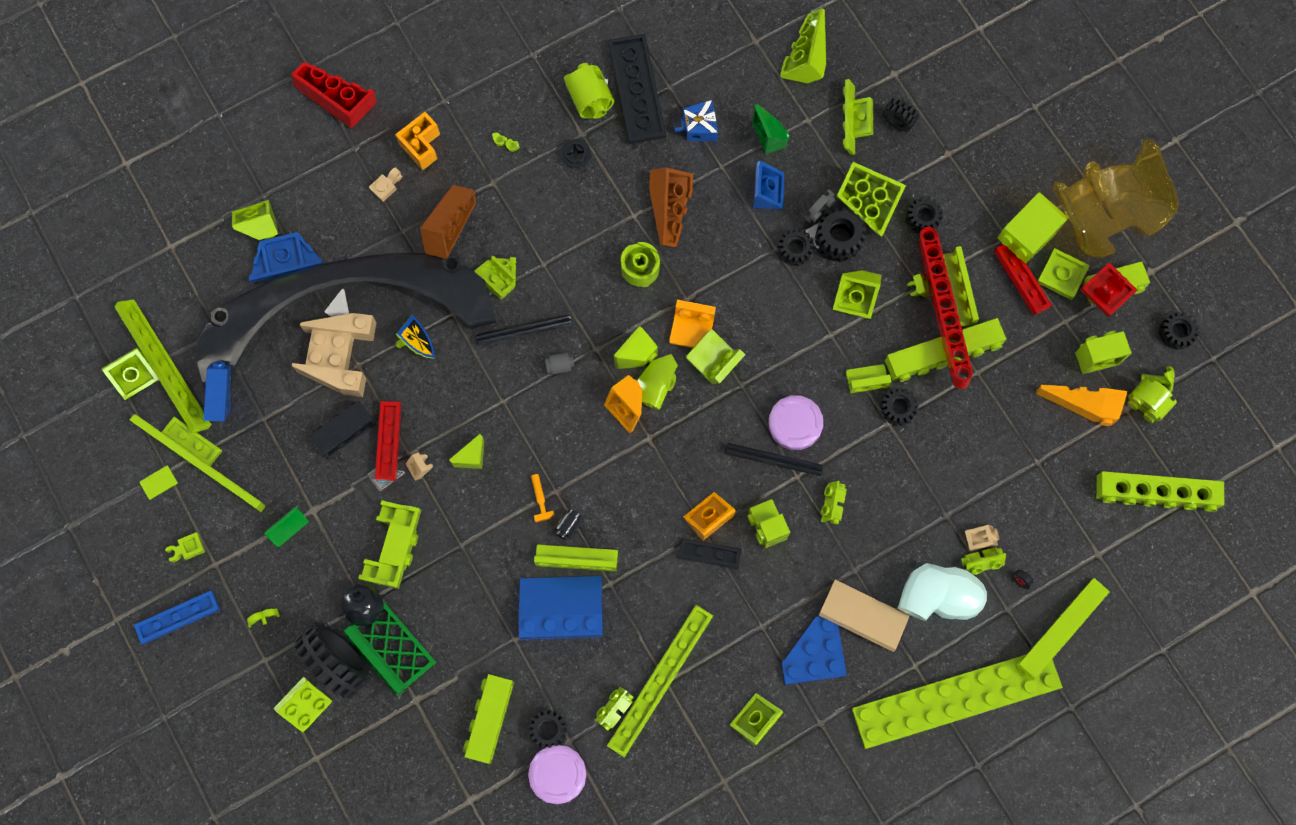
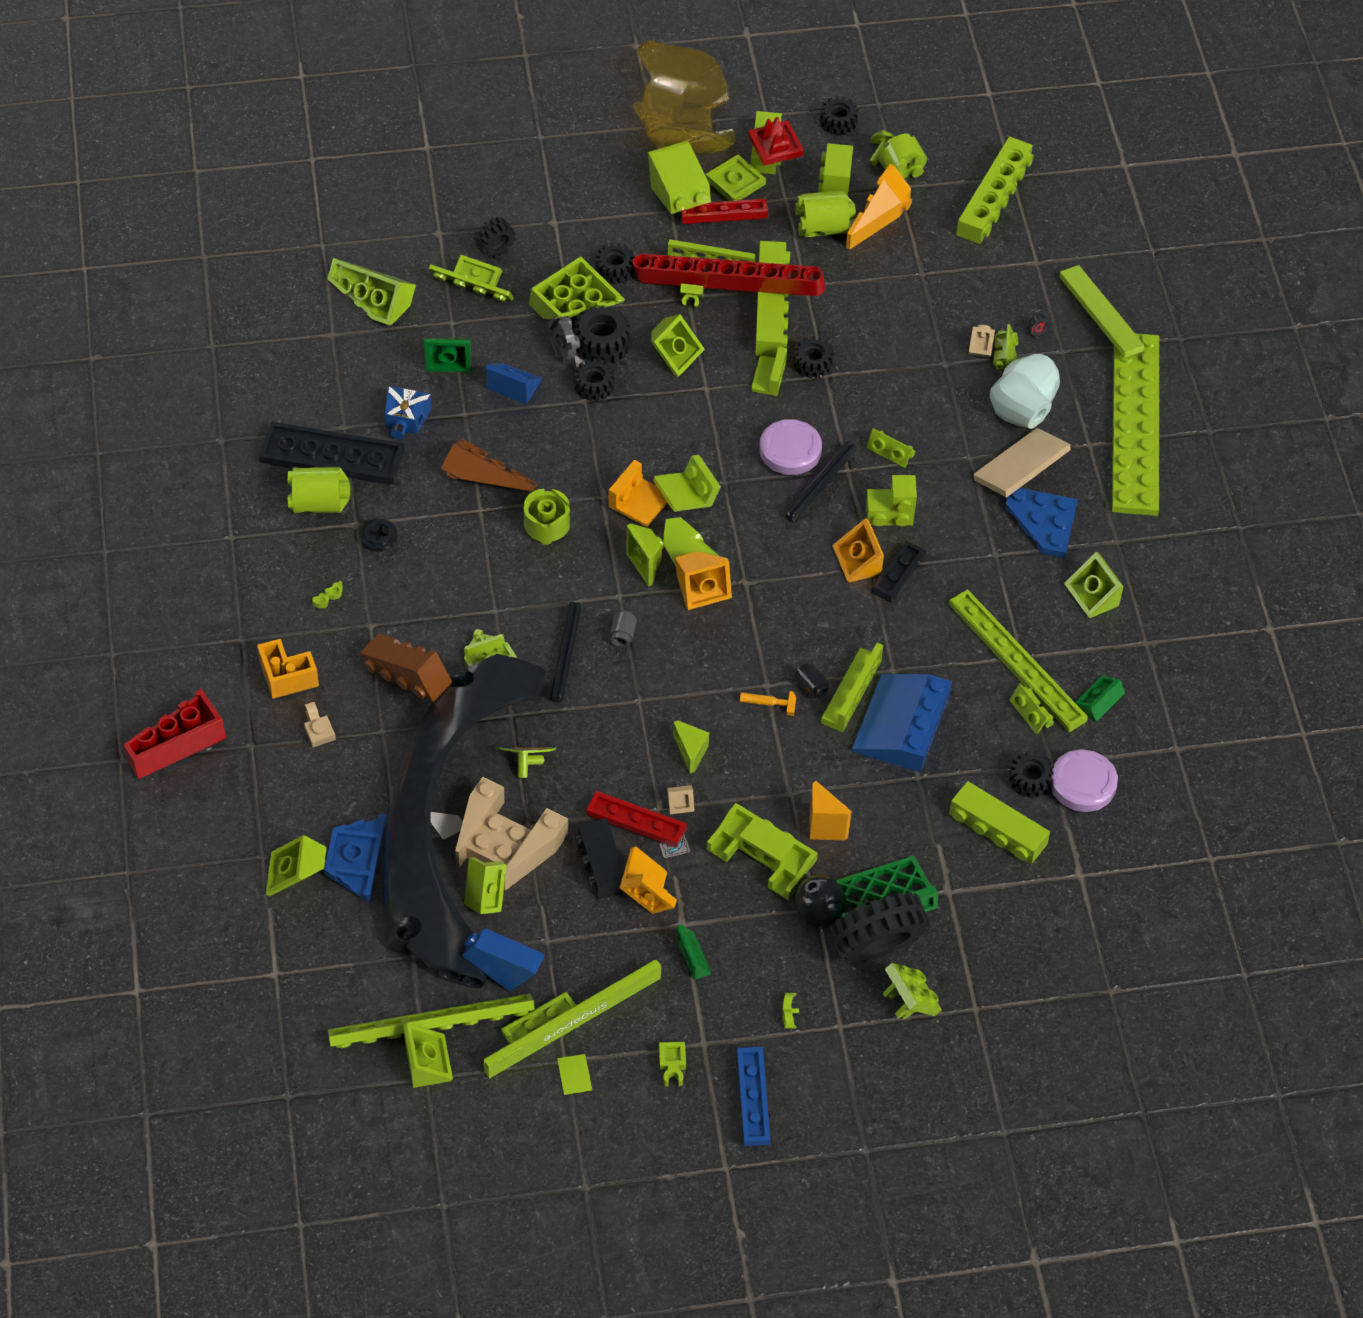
camera: 70 degrees left, 20 degrees down
(280, 358) = (485, 886): none -> lime panel
(328, 468) = (645, 882): none -> light orange bracket
(437, 579) = (827, 815): none -> light orange slope
(650, 760) = (1100, 697): none -> green slope
(1054, 359) = (825, 213): none -> lime cylinder

